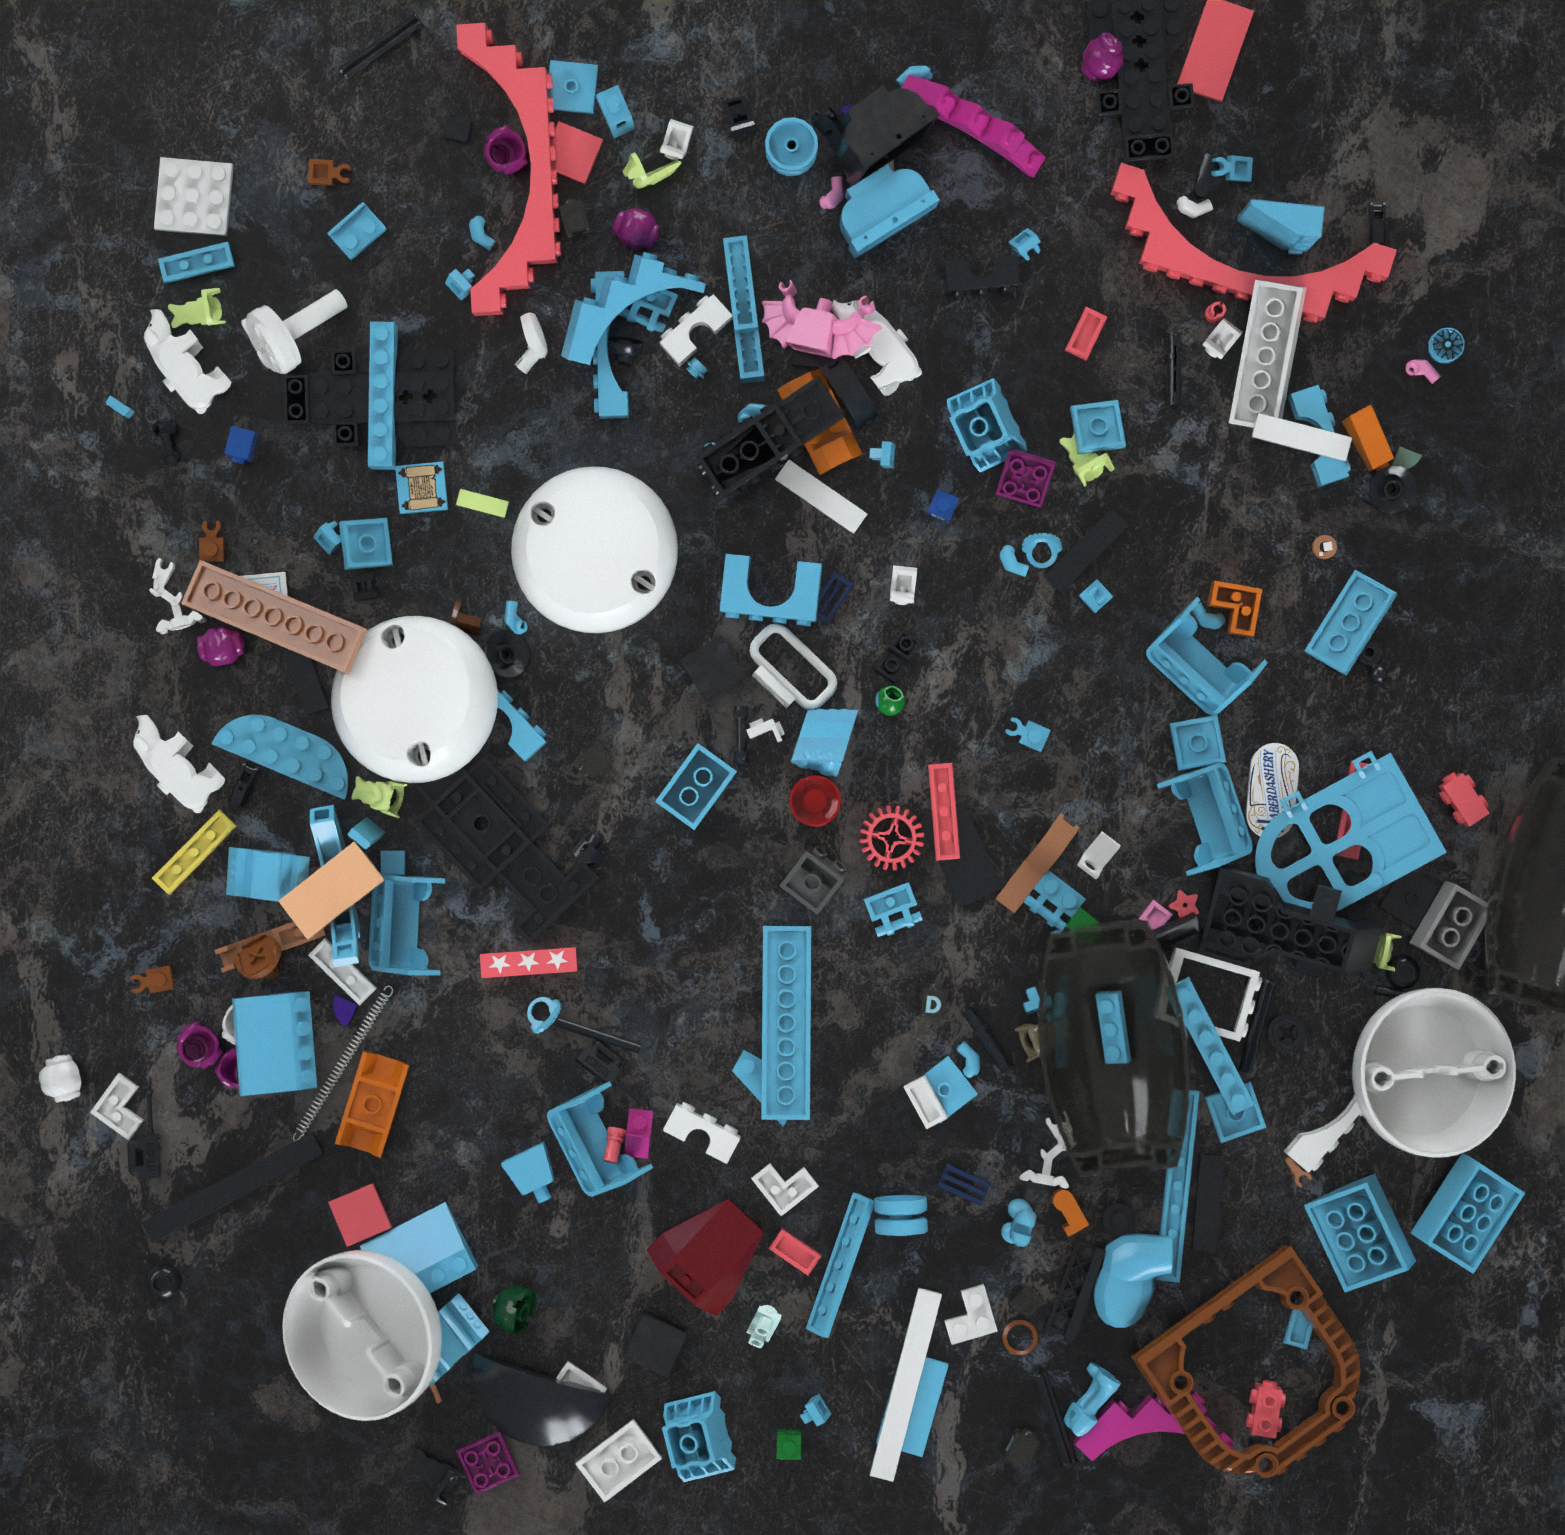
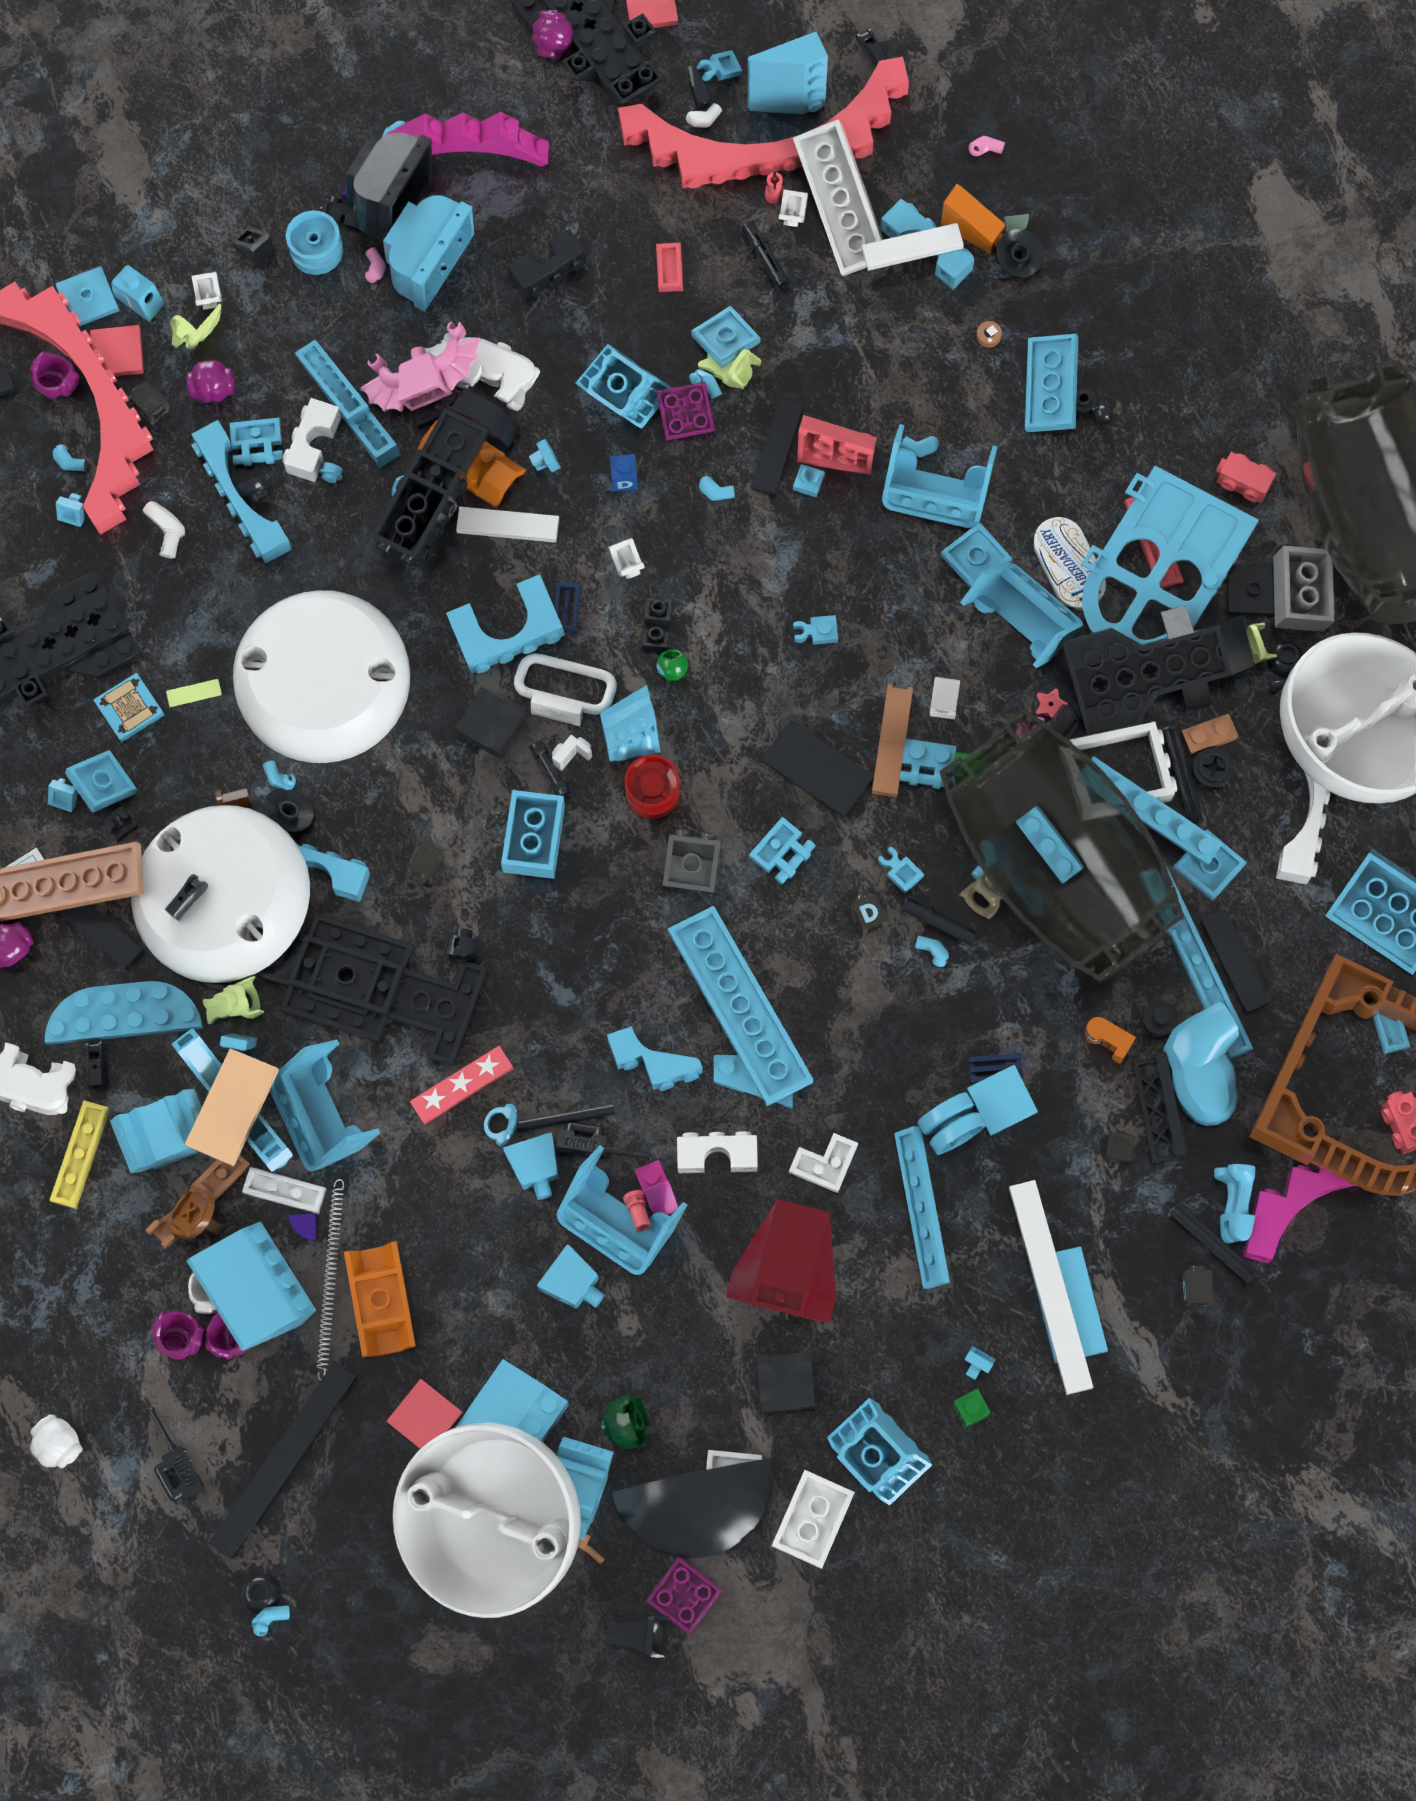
camera: 25 degrees left, 15 degrees down
(112, 1107) = (120, 1445): white tile -> none
(157, 980) = (104, 1296): dark orange plate -> none
(160, 1303) = (266, 1616): none -> medium azure arm
(377, 700) = (183, 901): none -> black bar
(381, 396) = (48, 640): medium azure arch -> none
(393, 862) = (278, 1057): medium azure tile -> none
(552, 1061) = (534, 1164): none -> medium azure torso
(591, 320) = (209, 466): medium azure arch -> none
(695, 1038) = (661, 1067): none -> medium azure arch
(763, 1325) = (880, 1304): light aqua hips -> none
(795, 1251) = (871, 1220): coral tile -> none
(888, 853) = (734, 789): coral gear -> none
(925, 1101) = (914, 1008): white tile -> none
(944, 811) = (779, 736): coral tile -> none
(950, 1086) = (925, 990): medium azure plate -> none
(953, 1214) = (1002, 1099): none -> medium azure tile
(977, 1321) = (1083, 1187): white plate -> none
(981, 982) = (903, 873): none -> medium azure plate
(1019, 1322) = (1133, 1201): dark orange piece -> none
(1020, 1228) = (1071, 1067): medium azure piece -> none
(1024, 242) = (570, 217): medium azure tile -> none
(1033, 1003) = (963, 863): medium azure tile -> none
(1045, 1177) = (1068, 1019): white piece -> none
(1053, 542) = (743, 455): medium azure piece -> none
(1060, 459) = (711, 384): none -> medium azure arm
(1135, 582) = (835, 446): none -> coral wedge
(1241, 602) = (943, 414): orange brick -> none
(1296, 1171) = (1300, 887): nougat piece -> none
(1300, 1002) = (1209, 734): none -> nougat plate
(1445, 345) = (994, 116): medium azure wheel -> none

